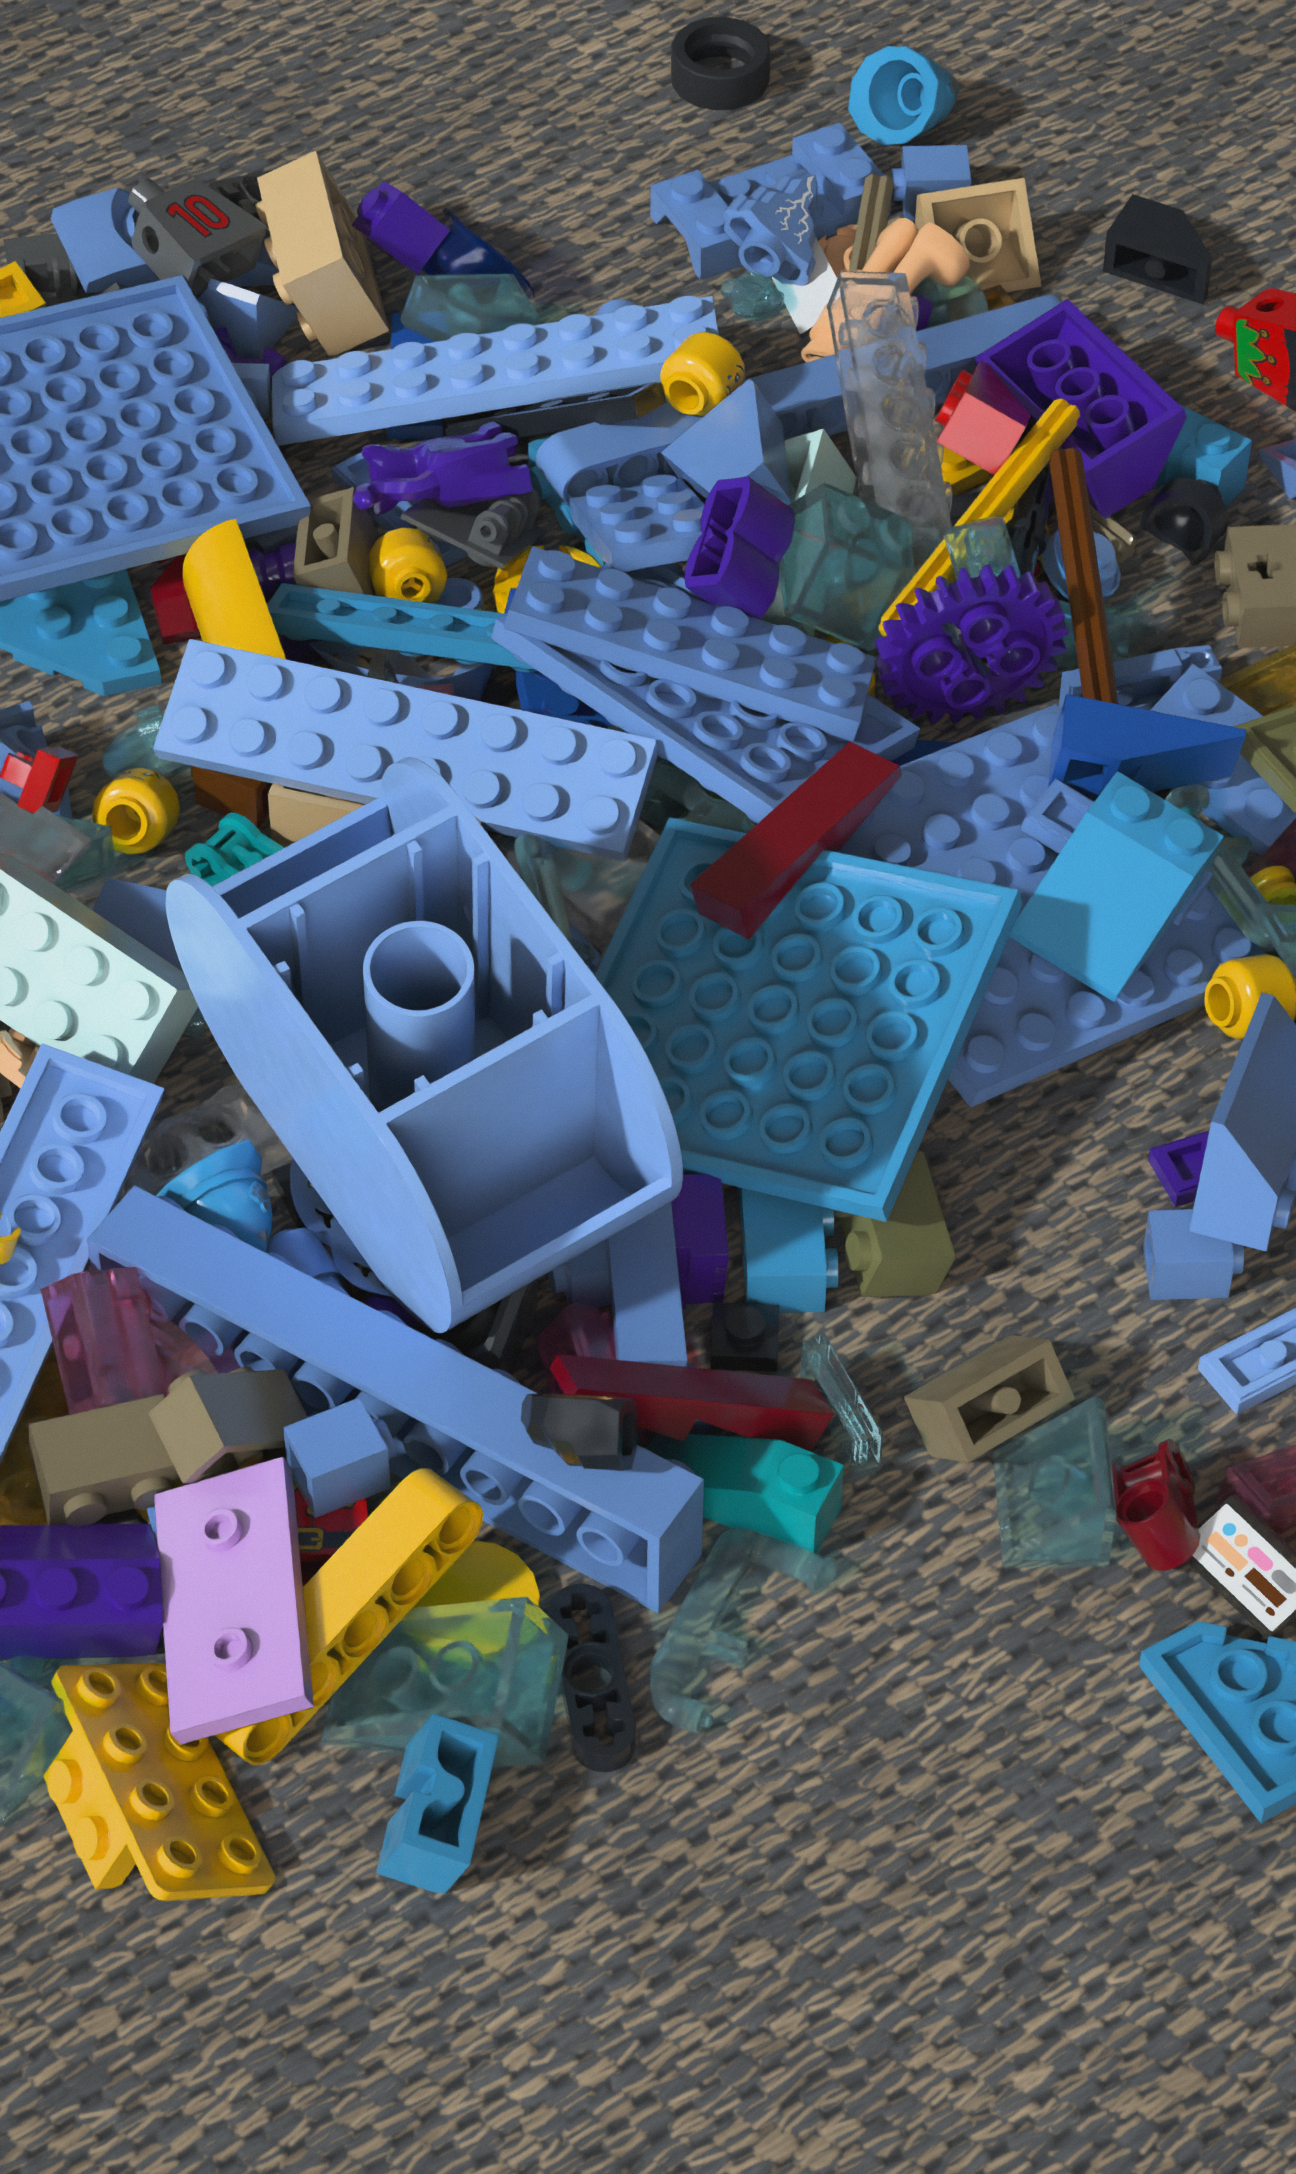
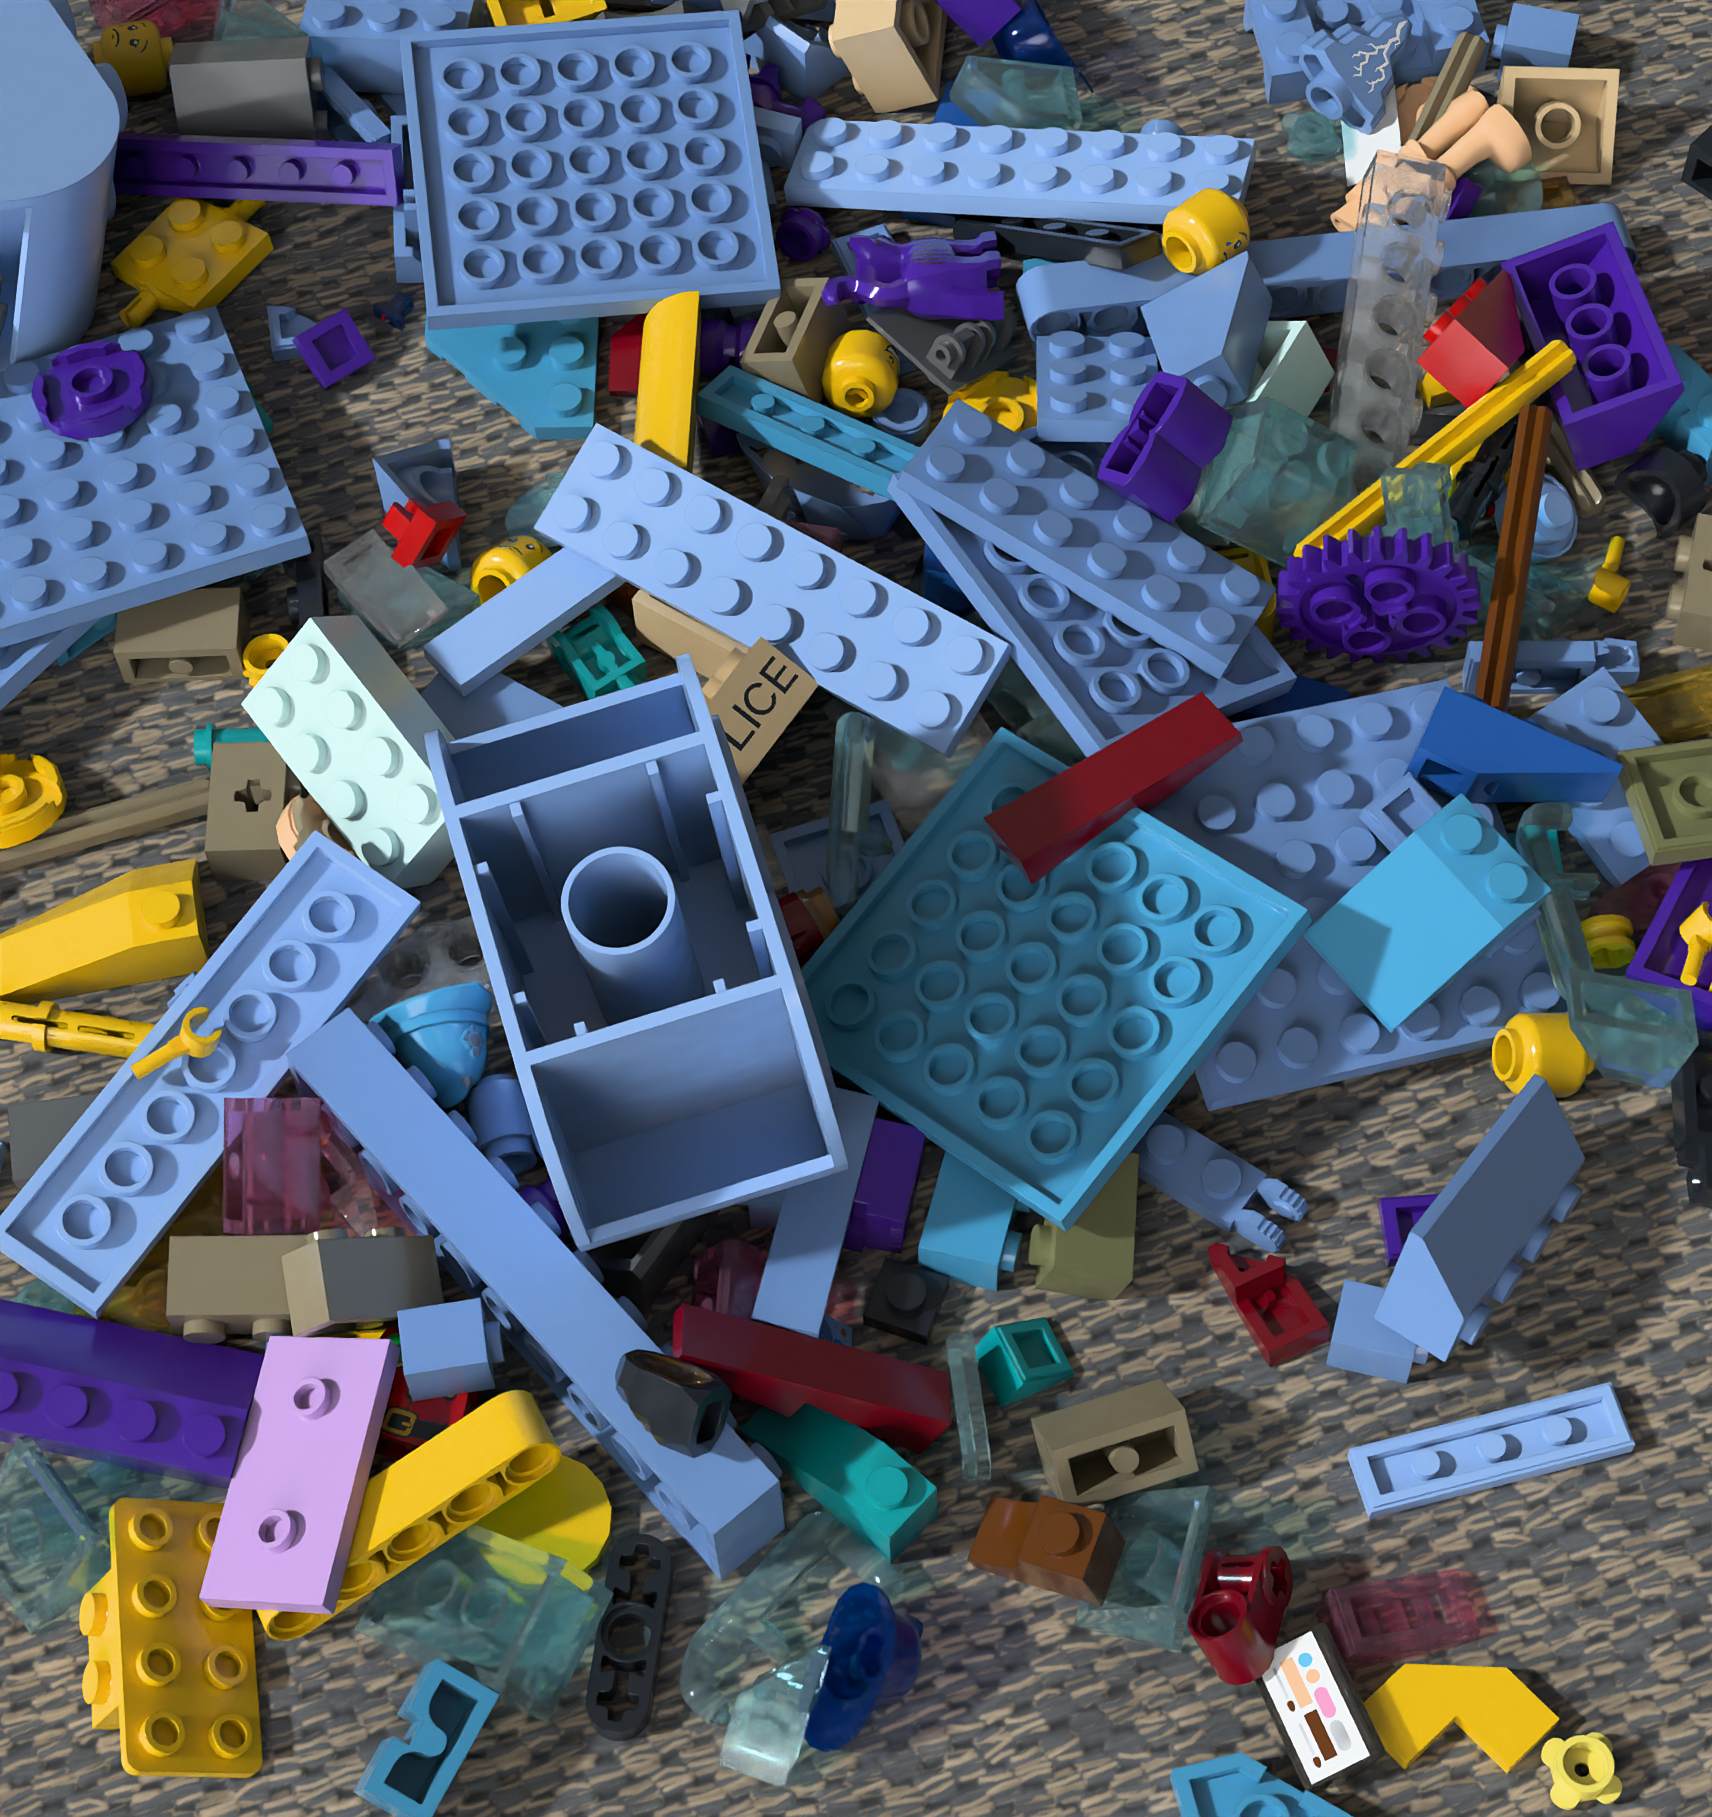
camera: 20 degrees right, 10 degrees up
(161, 836) = (518, 619): none -> light blue tile
(309, 453) = (802, 234): none -> dark purple plate
(757, 1705) = (772, 1719): none -> clear light blue slope
(820, 1639) = (869, 1665): none -> clear blue piece
(875, 1358) = (1021, 1359): none -> teal slope
(962, 1496) = (1049, 1546): none -> reddish brown arch
(1002, 1173) = (1215, 1182): none -> medium blue hinge
(1081, 1260) = (1270, 1304): none -> dark red slope
(1165, 611) = (1609, 587): none -> yellow hand

